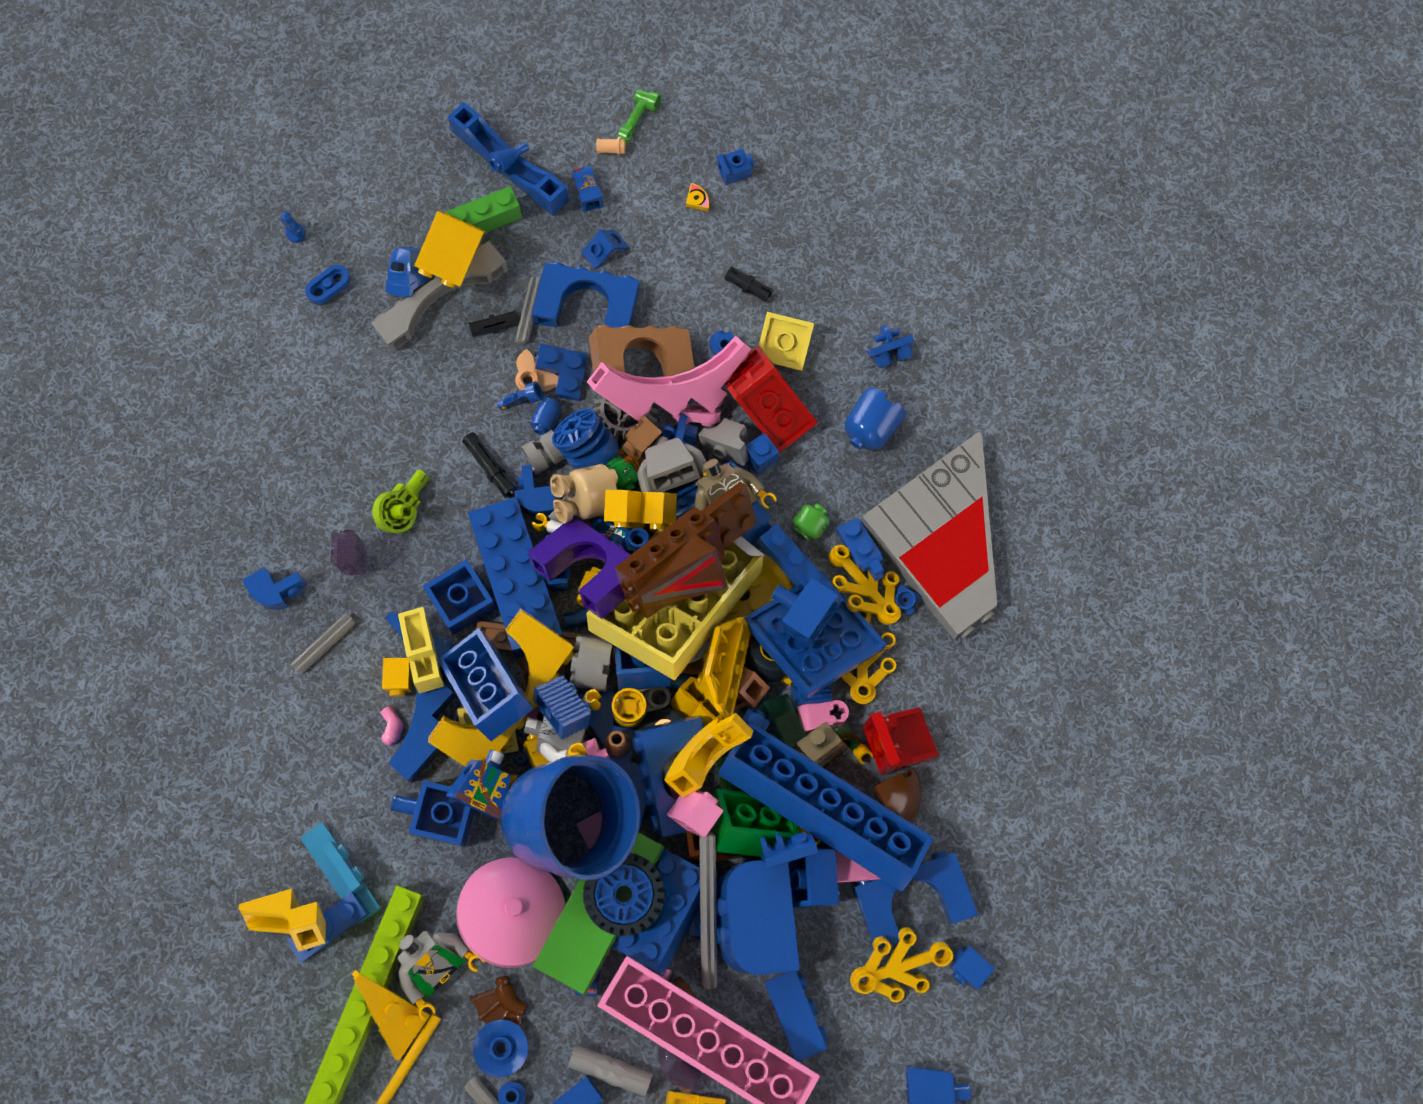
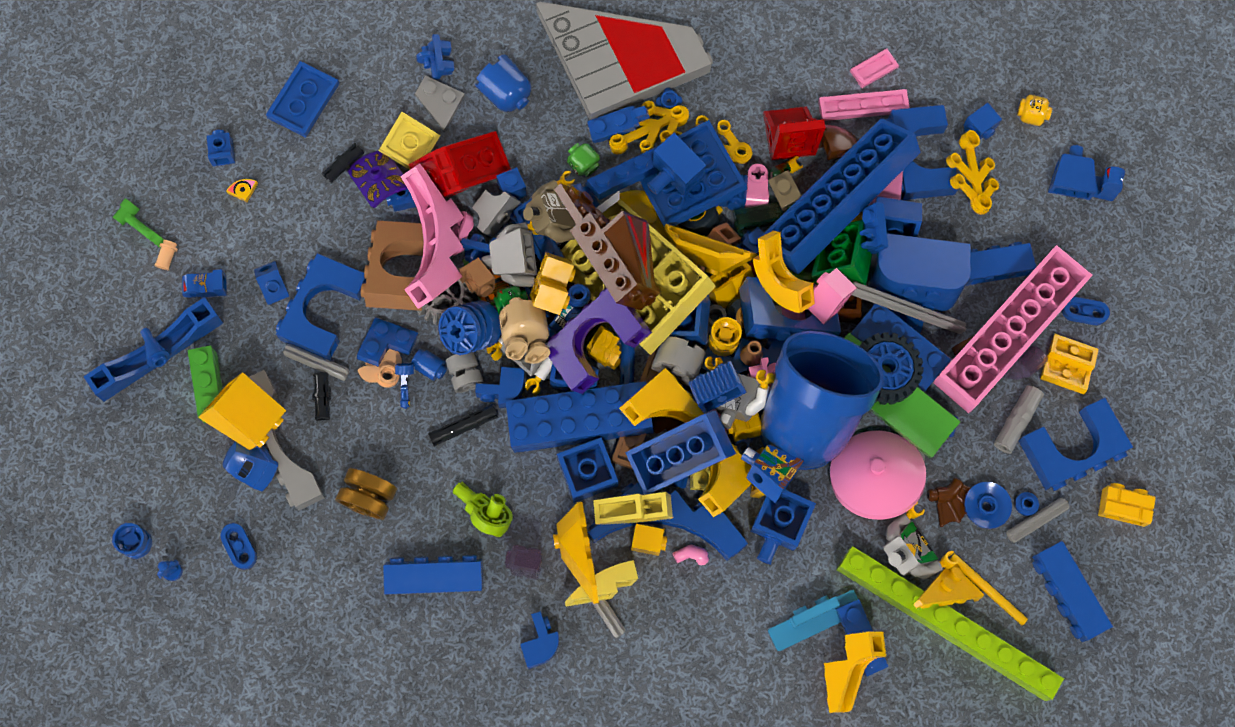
camera: 80 degrees left, 0 degrees up
(315, 188) = (132, 540): none -> blue wheel
(324, 470) = (433, 575): none -> blue brick
(340, 637) = (607, 583): none -> light yellow slope
(366, 603) = (575, 549): none -> yellow wedge
(393, 384) = (366, 494): none -> pearl gold wheel
(738, 317) = (377, 177): none -> dark purple shield
(809, 229) = (302, 99): none -> blue plate
(843, 362) = (439, 100): none -> light grey wing
(957, 821) = (862, 104): none -> bright pink plate
(1005, 1031) = (1034, 110): none -> yellow head
(1009, 827) = (874, 68): none -> bright pink tile

